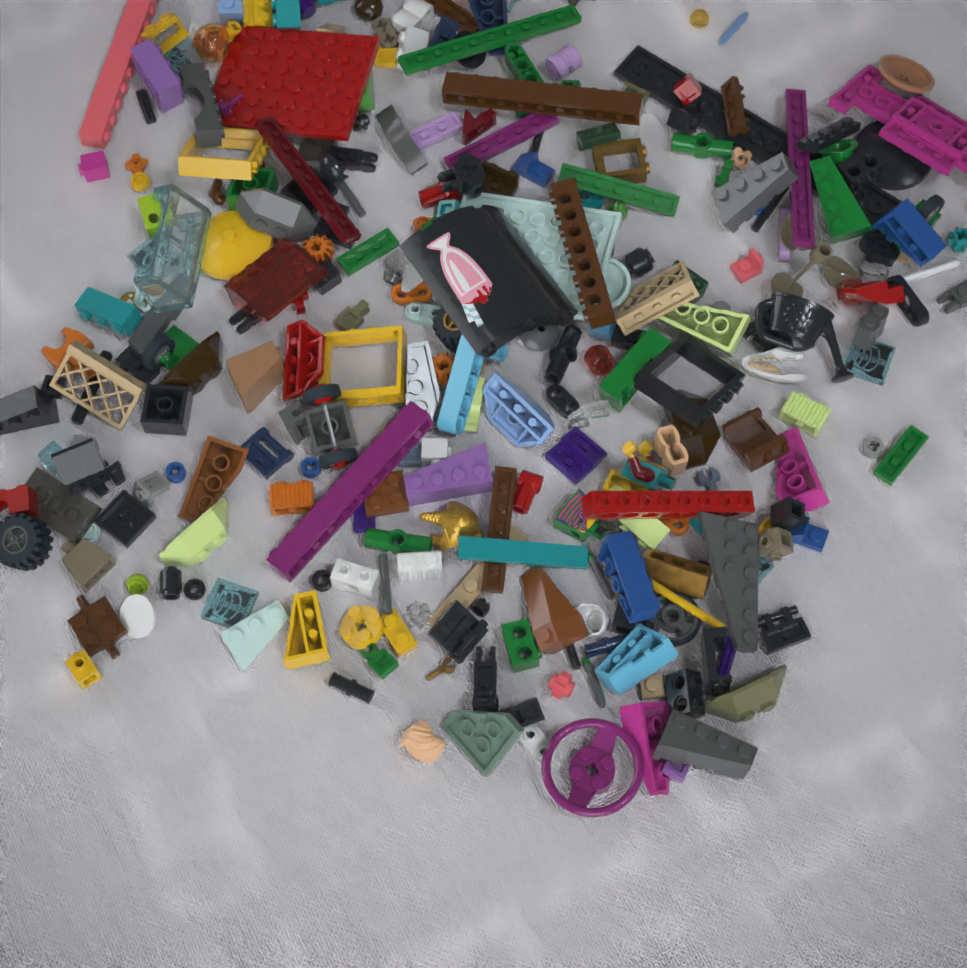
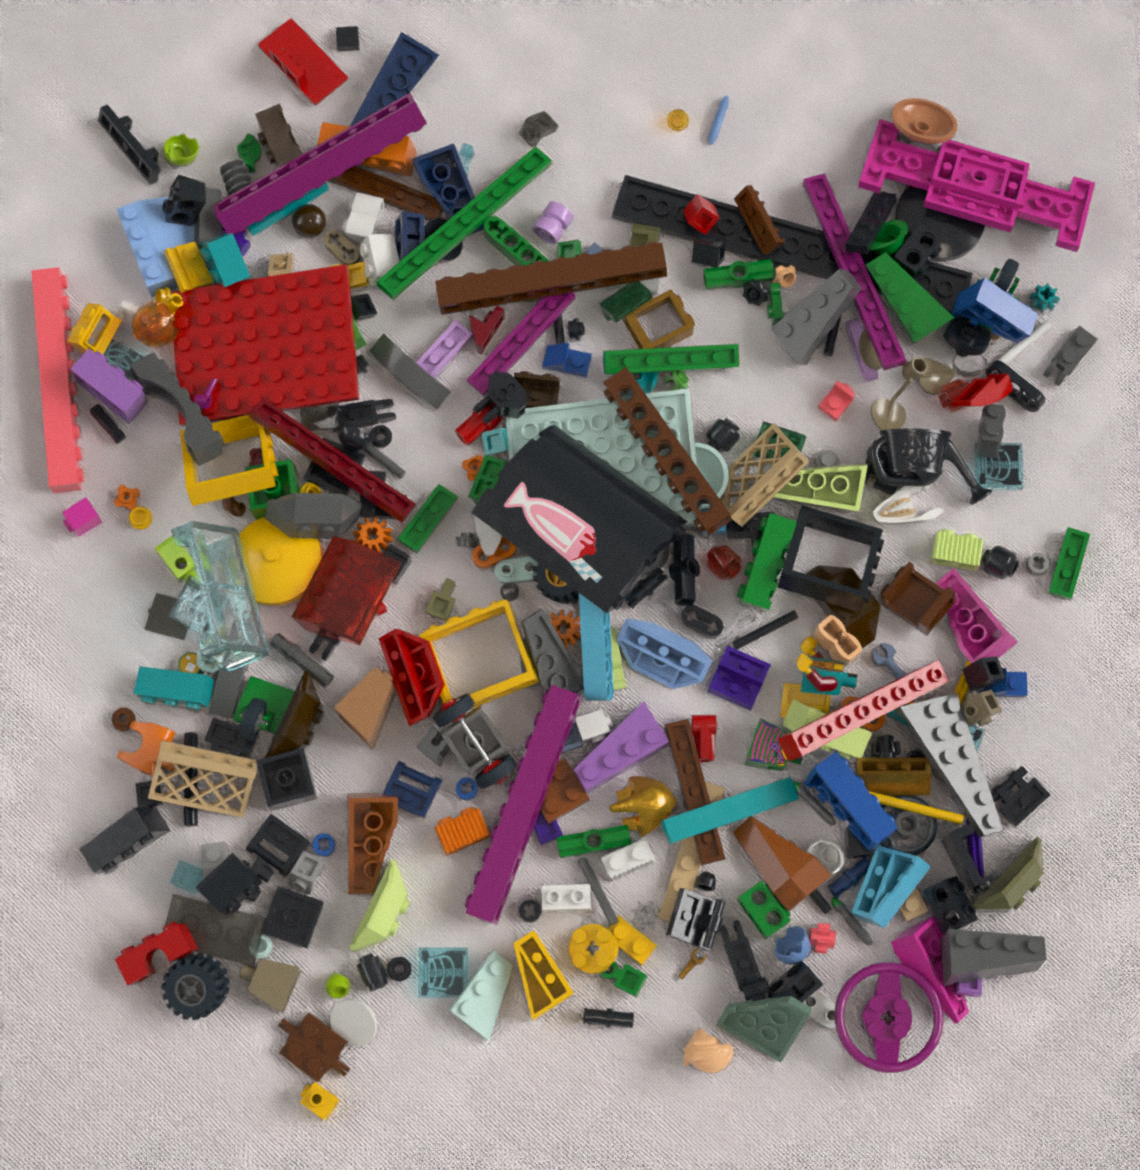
camera: 25 degrees left, 10 degrees up
(57, 320) = (116, 716): none -> reddish brown plate
(121, 264) = (160, 622): none -> clear smoke piece
(143, 454) = (282, 838): none -> black plate
(216, 319) = (298, 657): none -> dark grey pin
(356, 175) = (380, 429): none -> black plate
(382, 80) = (362, 307): none -> black plate
(411, 322) = (511, 596): none -> black hinge
(525, 360) = (645, 588): none -> black pin
(534, 684) = (793, 946): none -> medium blue hair
(549, 147) = (576, 329): none -> black plate
(606, 426) = (764, 630): none -> black bar
(680, 547) = (885, 747): none -> black gear
(710, 163) = (755, 292): none -> black piece
(839, 434) = (1000, 562): none -> black head

